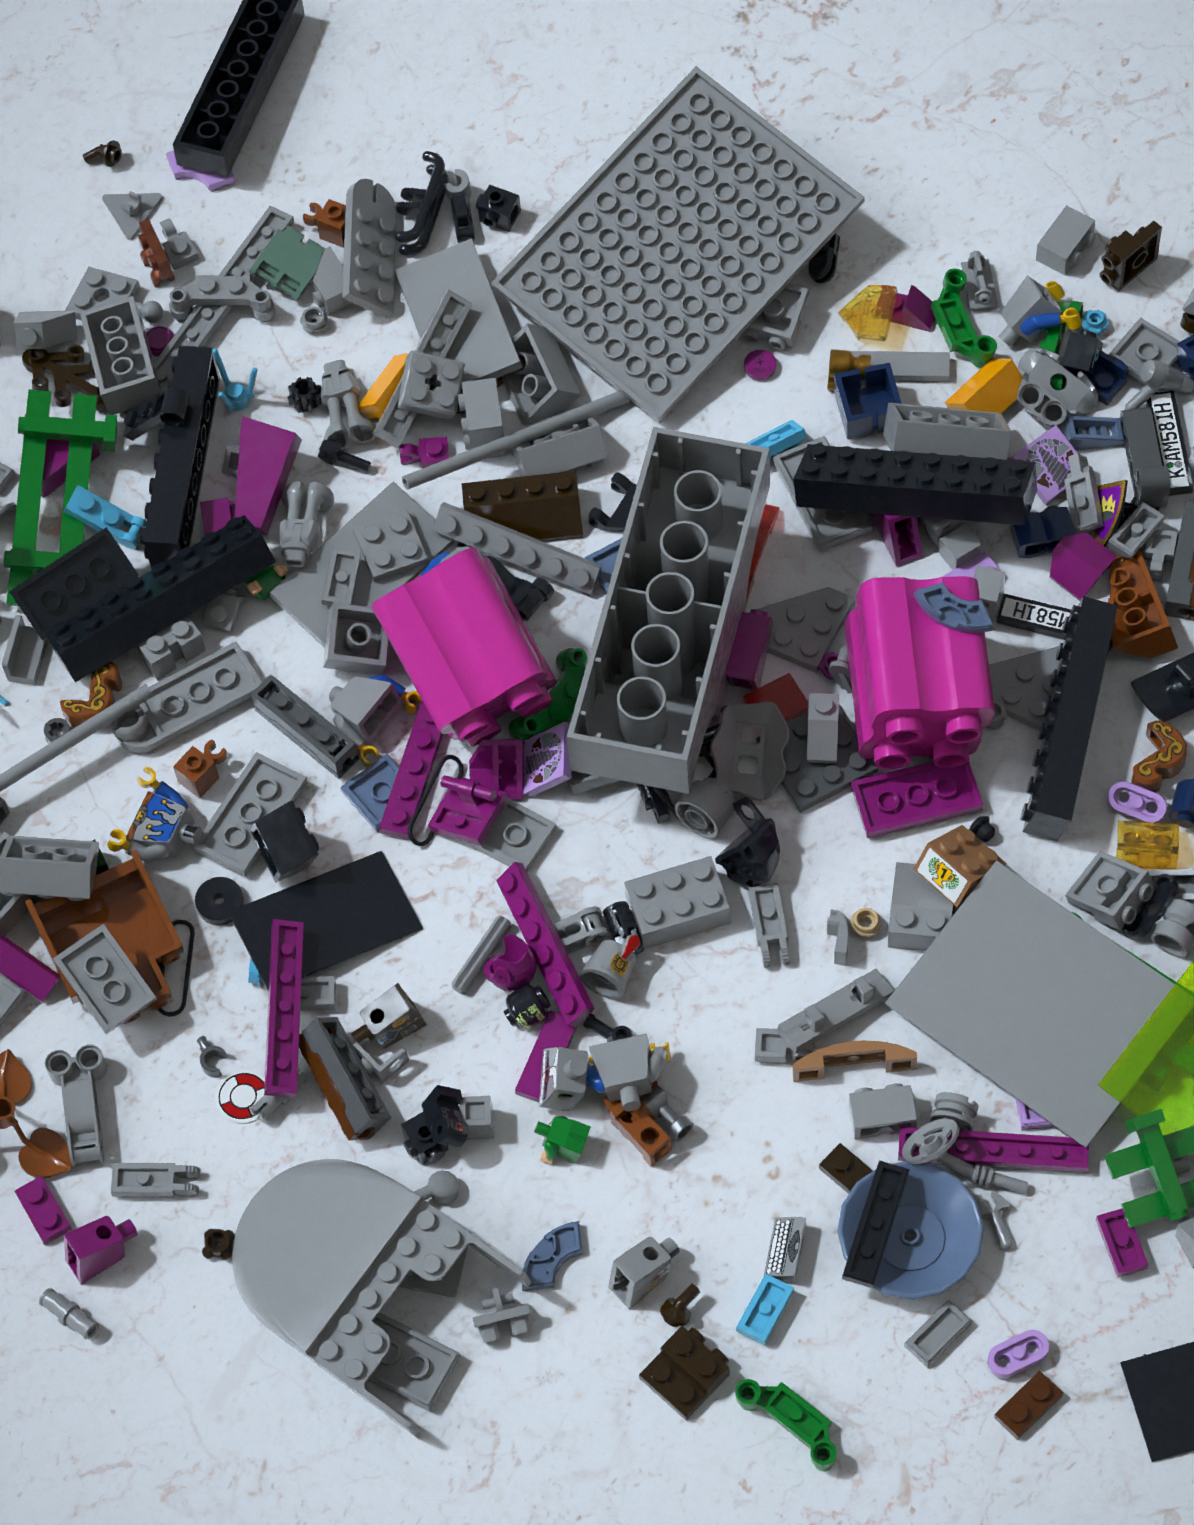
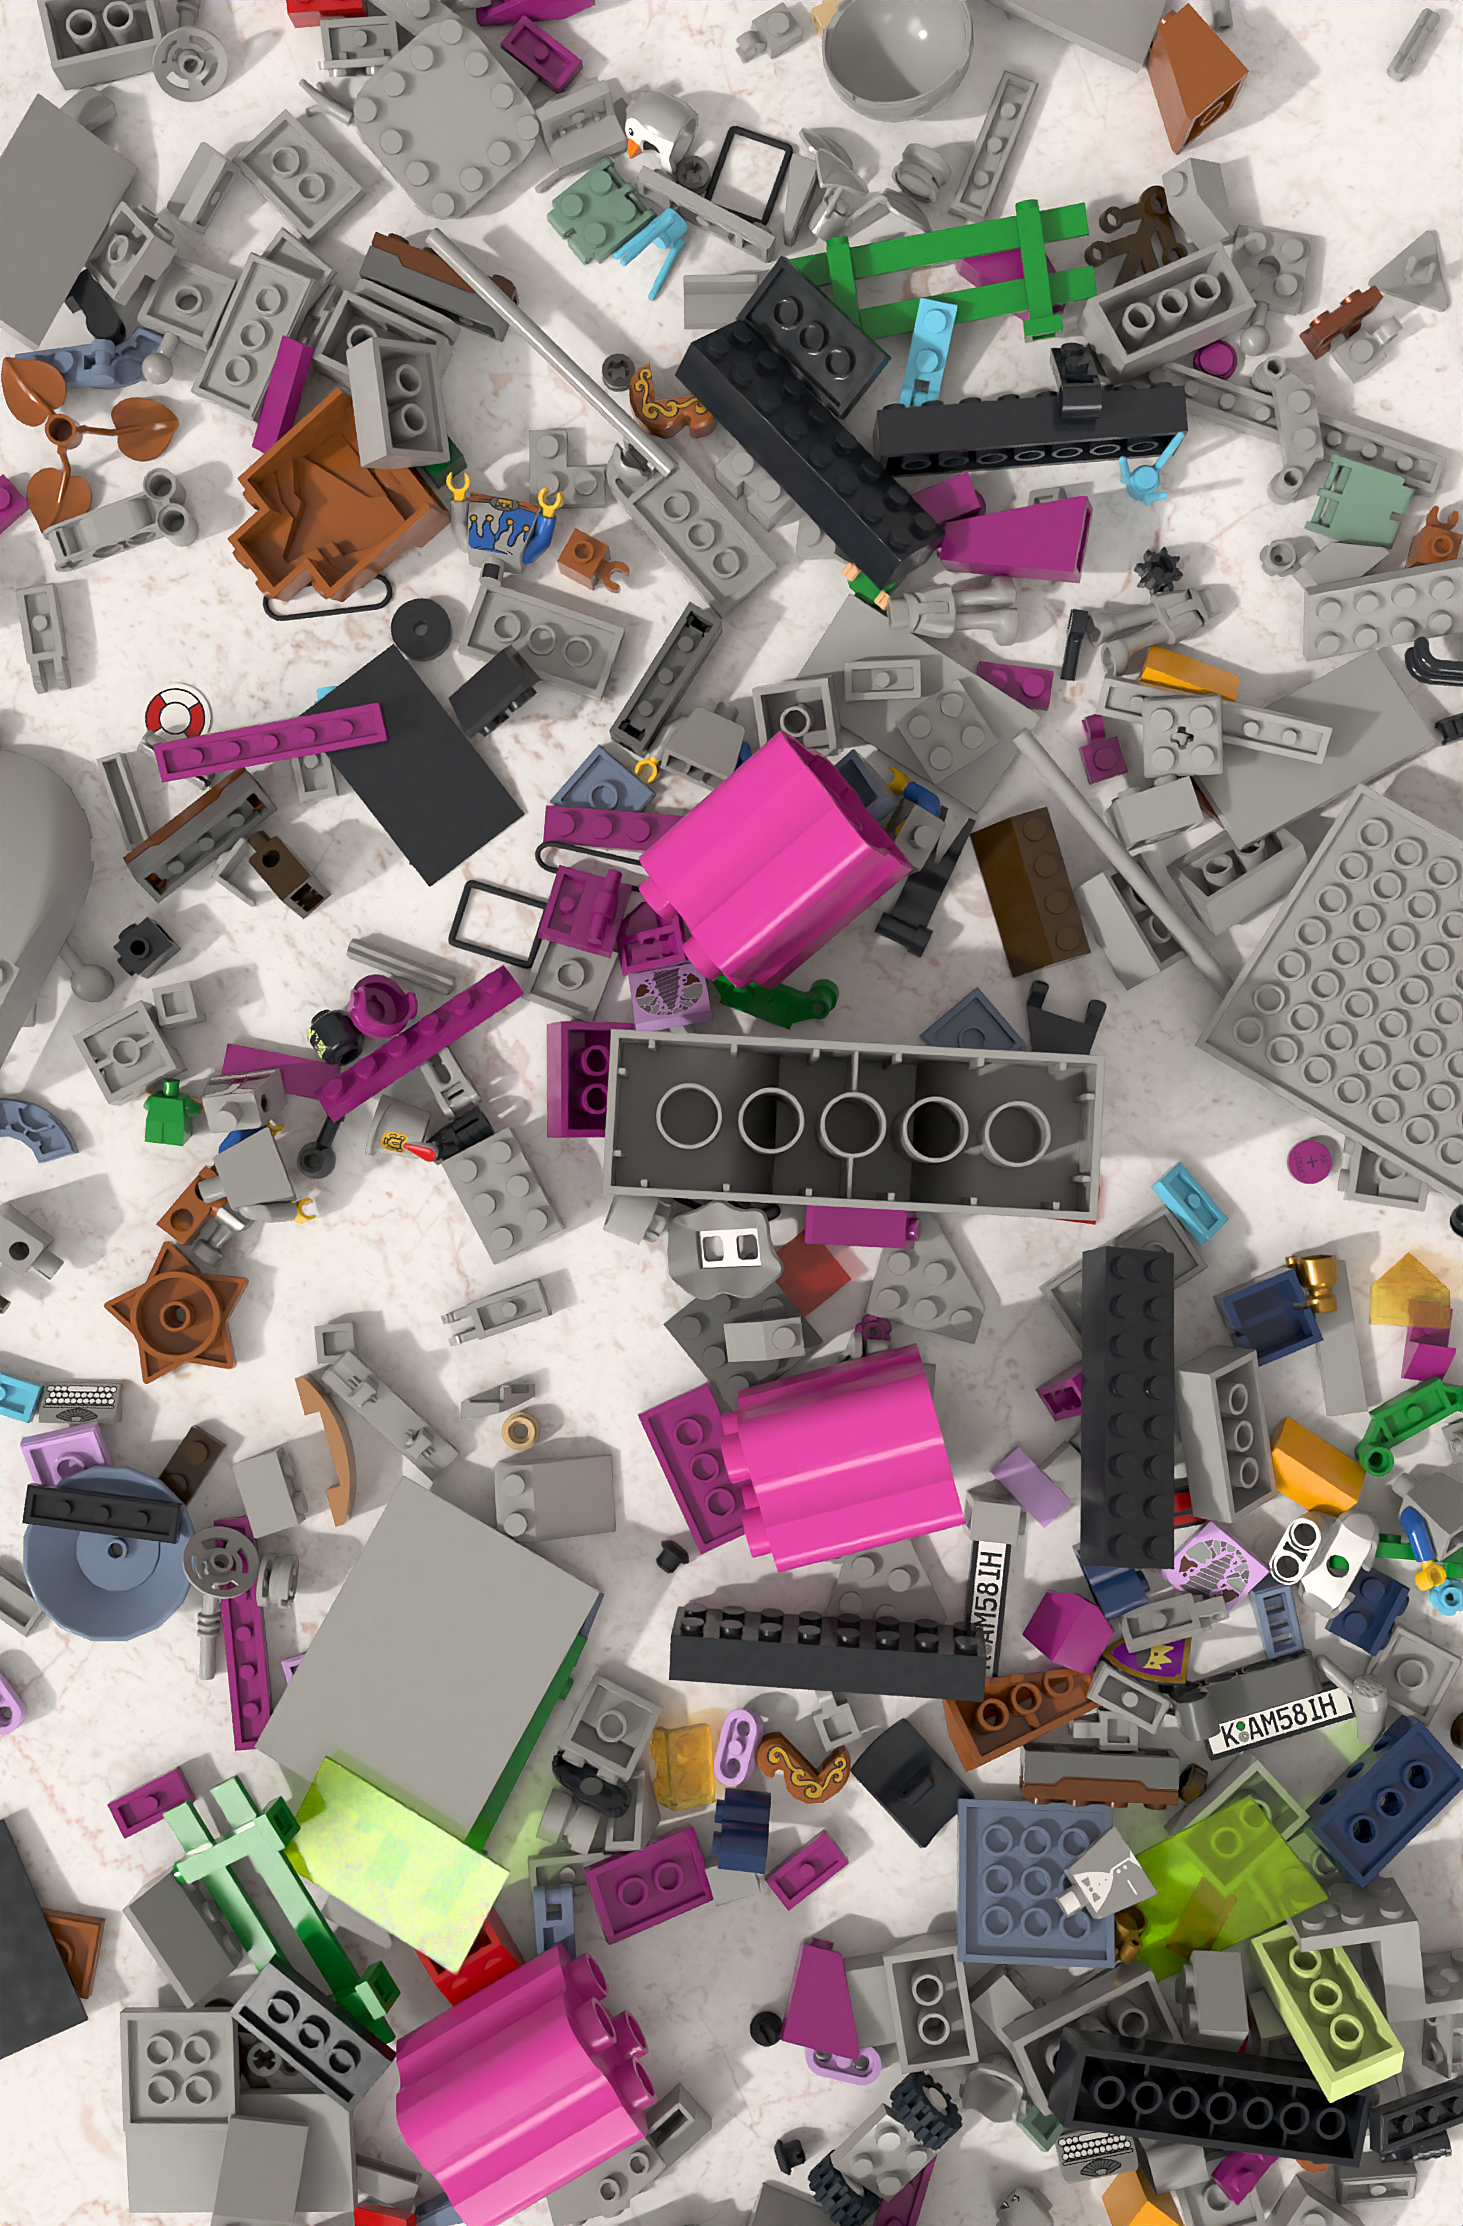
camera: 75 degrees right, 25 degrees up
(104, 979) = (260, 512): light grey plate -> none
(122, 791) = (549, 468): none -> light grey plate
(207, 1052) = (222, 661): dark grey piece -> none
(300, 1139) = (124, 799): none -> light grey piece
(364, 492) = (1023, 684): none -> magenta plate
(444, 1116) = (154, 970): black leg -> none
(456, 847) = (485, 952): none -> black piece
(507, 1156) = (129, 1053): none -> light grey piece
(517, 548) = (969, 897): light grey plate -> none
(599, 827) = (578, 1077): none -> magenta slope
(724, 1138) = (152, 1318): none -> dark orange plate
(755, 853) = (586, 1276): black piece -> none
(825, 1261) = (64, 1452): none -> lavender tile
(952, 611) = (901, 1503): sand blue tile -> none
(956, 863) = (601, 1541): medium nougat brick -> none
(996, 1218) = (161, 1646): light grey bar -> none
(1082, 352) = (1383, 1595): black brick -> none
(1126, 732) = (835, 1721): none -> light grey plate

